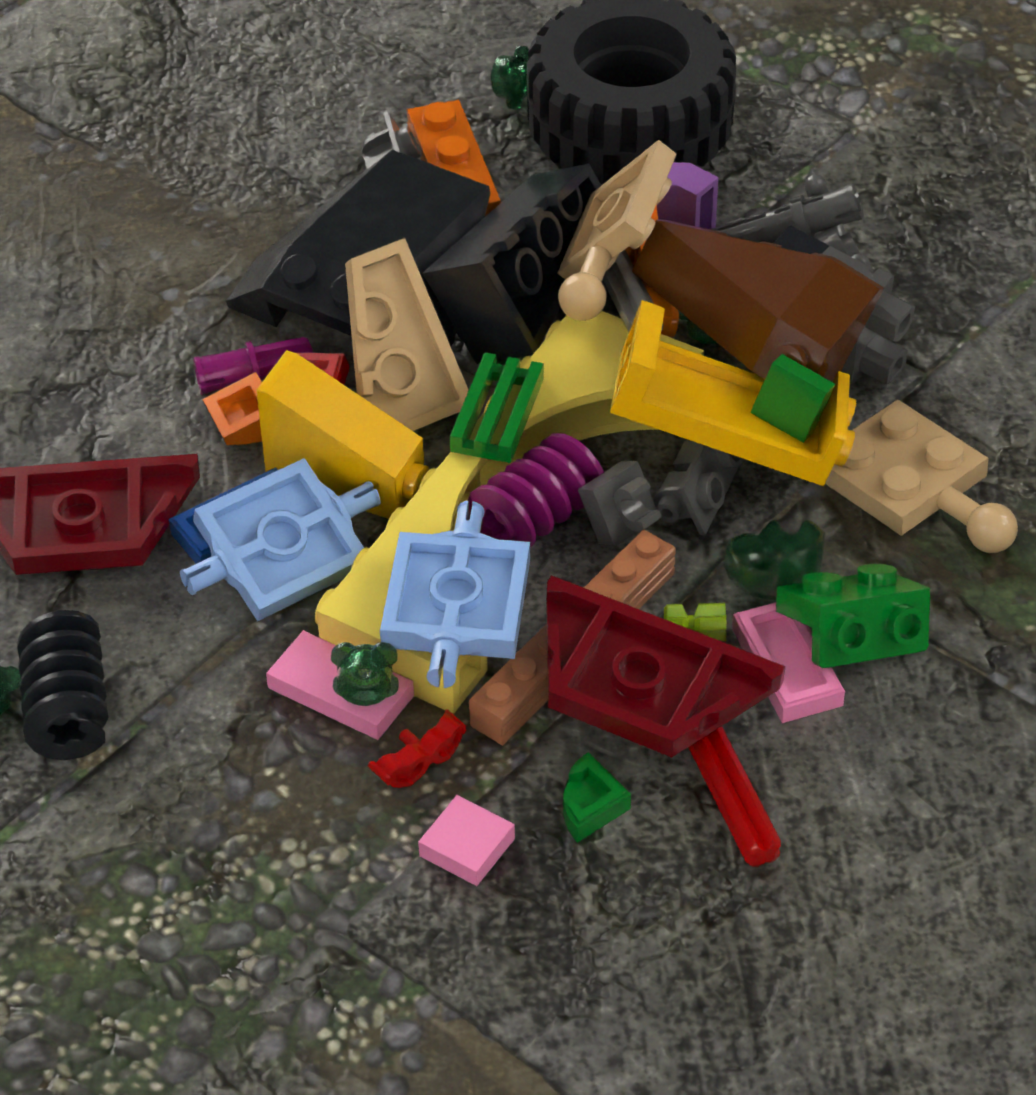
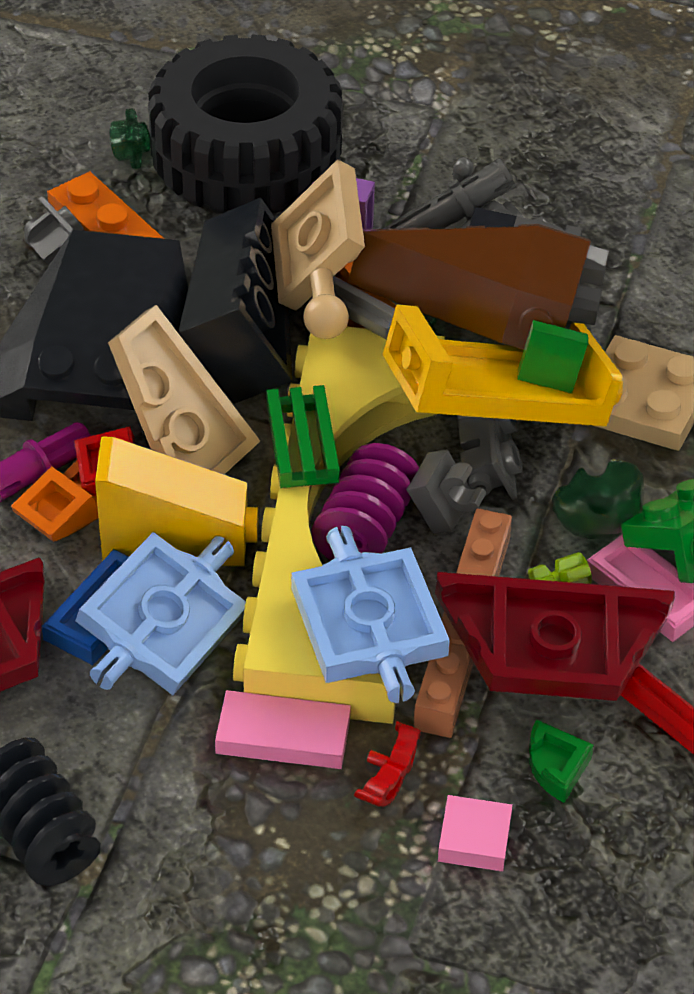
camera: 25 degrees left, 0 degrees up
(367, 685) = (316, 711): clear green plate -> none

